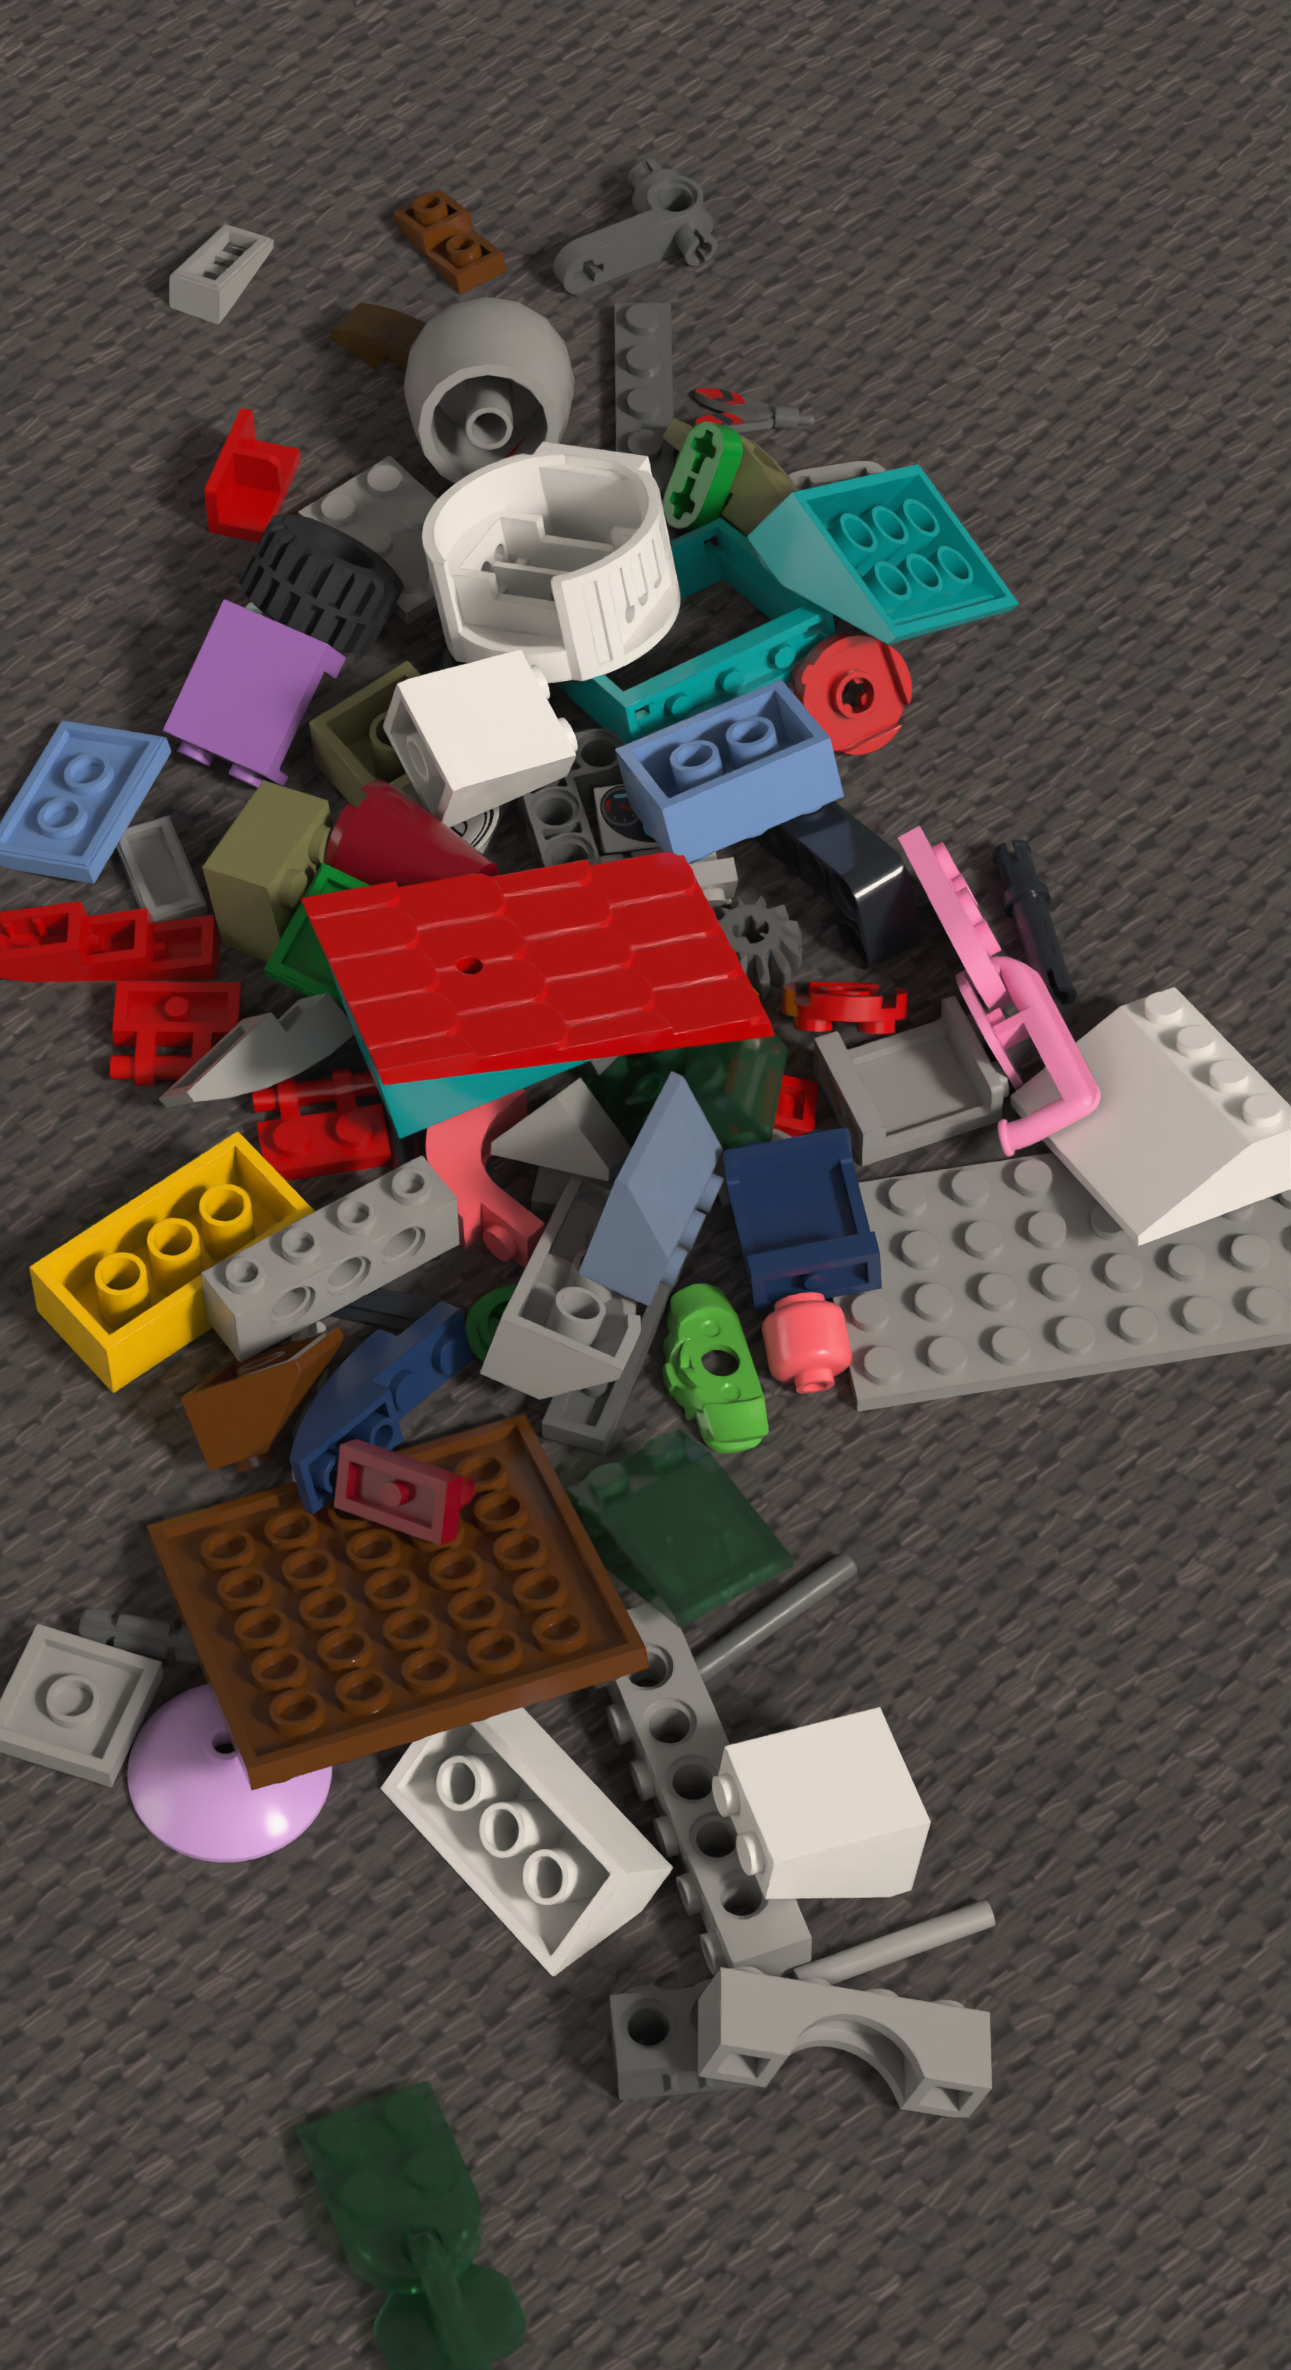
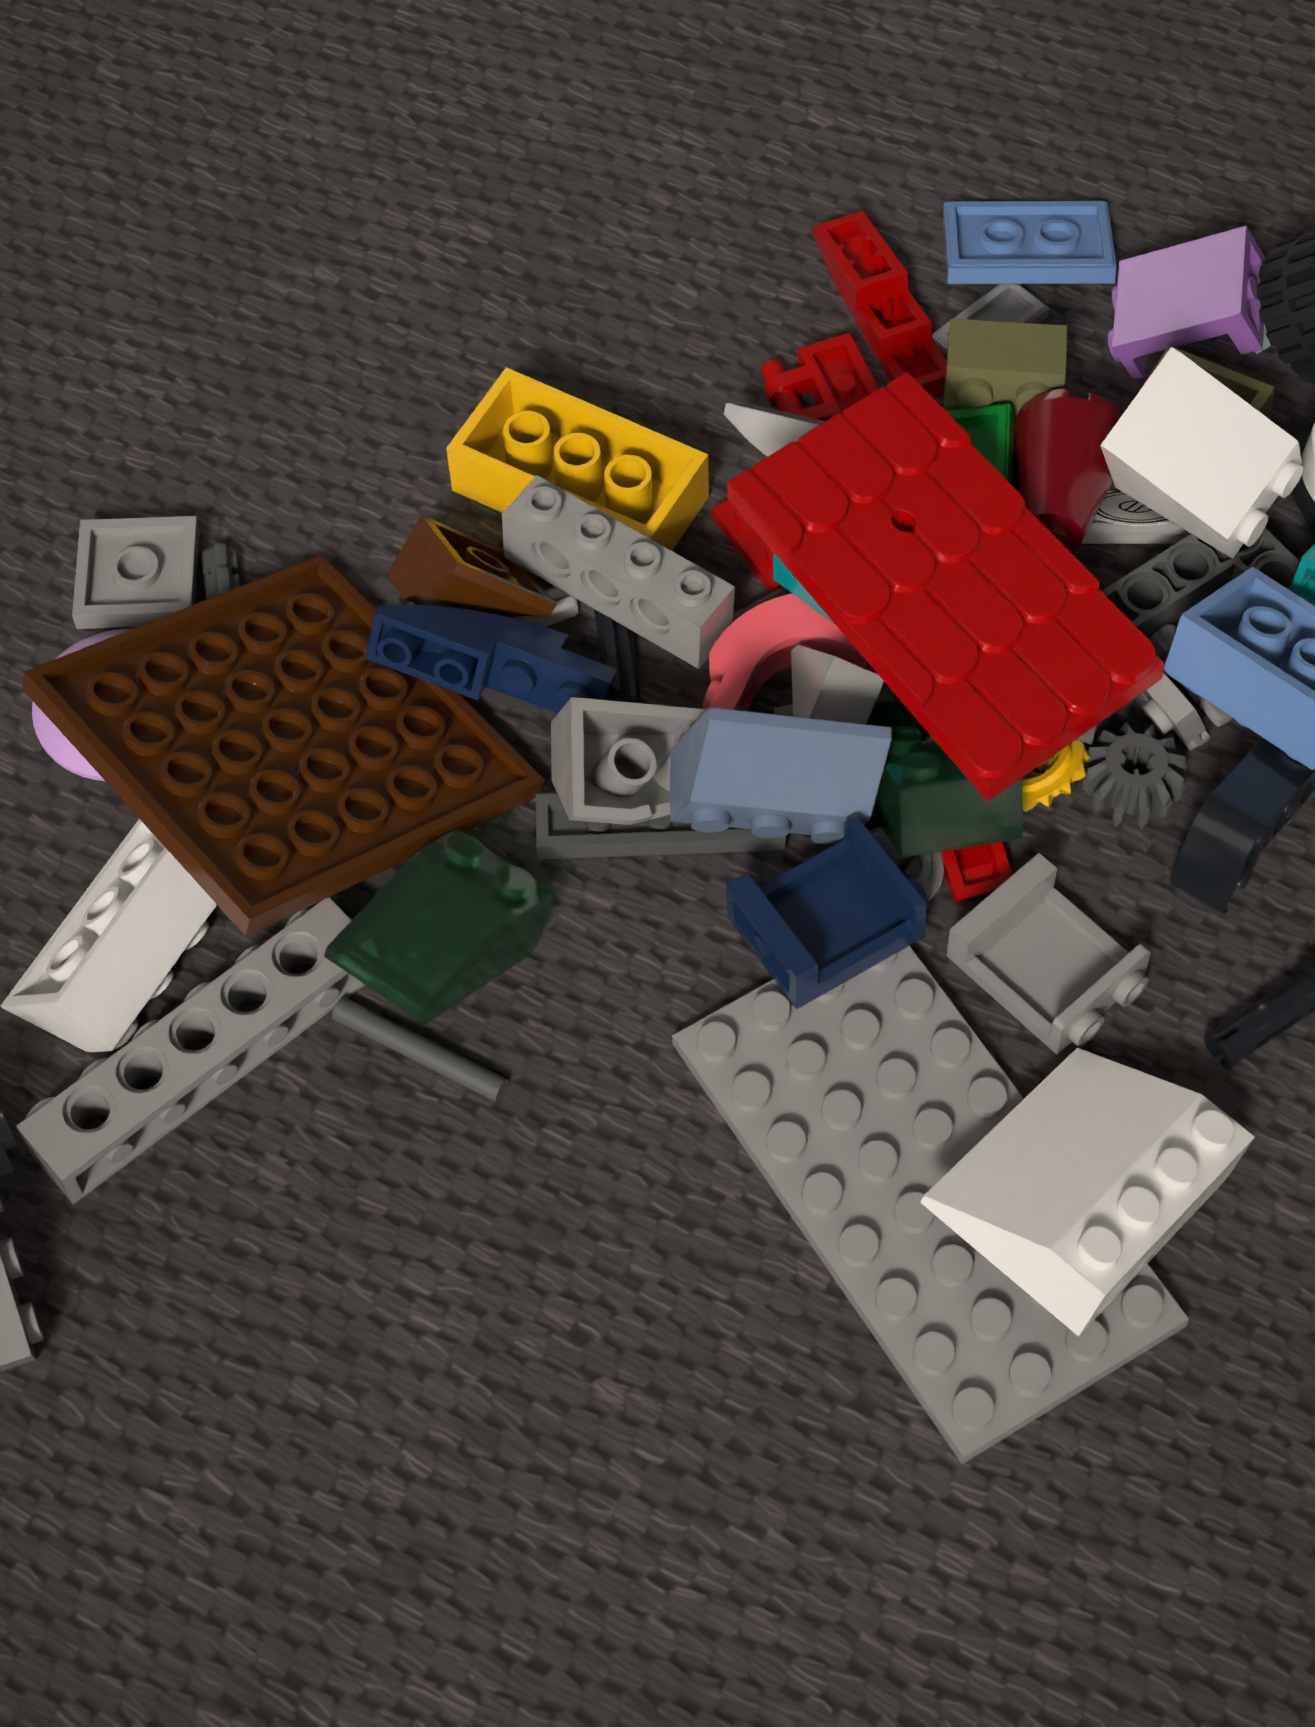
camera: 70 degrees right, 5 degrees up
(401, 1491) = (380, 712): dark red tile -> none
(726, 1407) = (625, 936): bright green piece -> none
(806, 1342) = (712, 970): coral head -> none
(824, 1810) = (177, 1137): white slope -> none
(844, 1003) = (1098, 873): red plate -> none
(899, 1944) = (110, 1264): light grey bar -> none
(1001, 983) = (1154, 988): bright pink plate -> none

